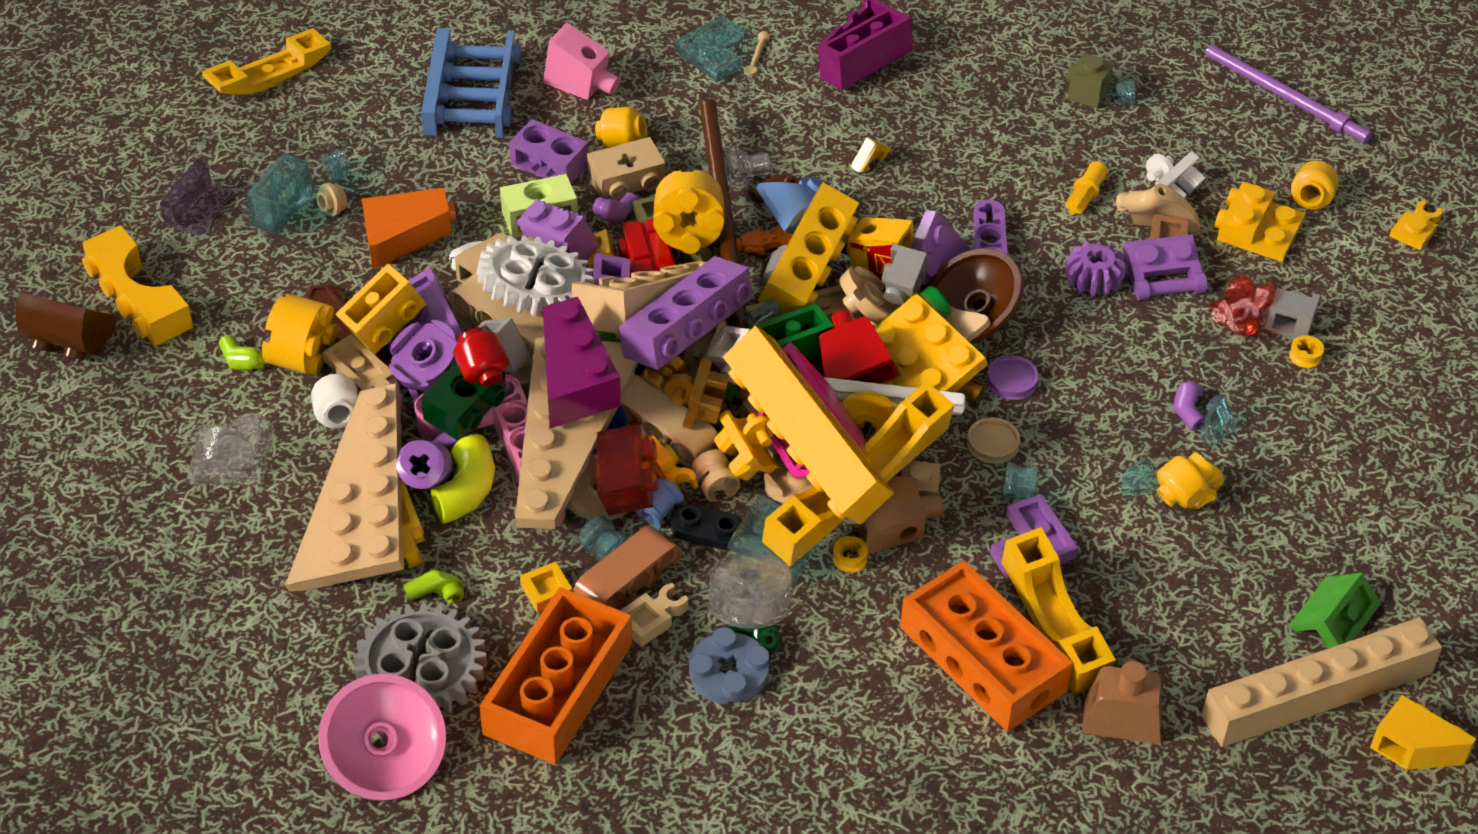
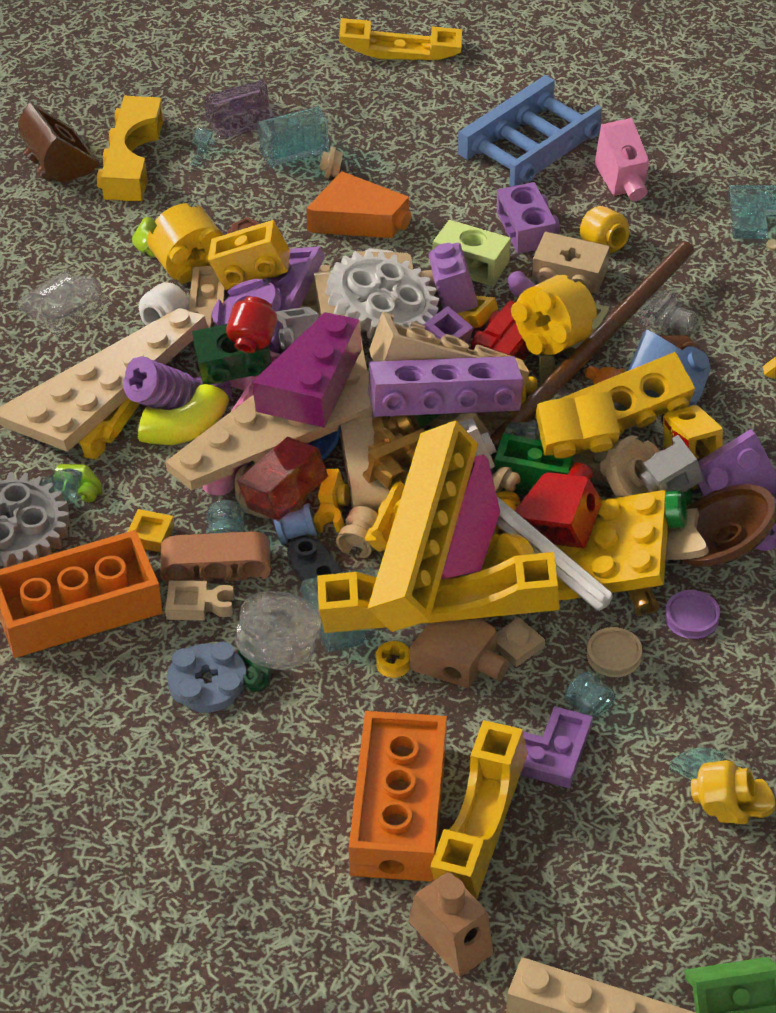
camera: 45 degrees right, 0 degrees up
(190, 243) = (202, 139): none -> clear light blue hand
(335, 165) = (362, 139): clear light blue bush -> none
(430, 591) = (67, 481): none -> clear light blue tile
(813, 281) = (577, 424): none -> yellow brick

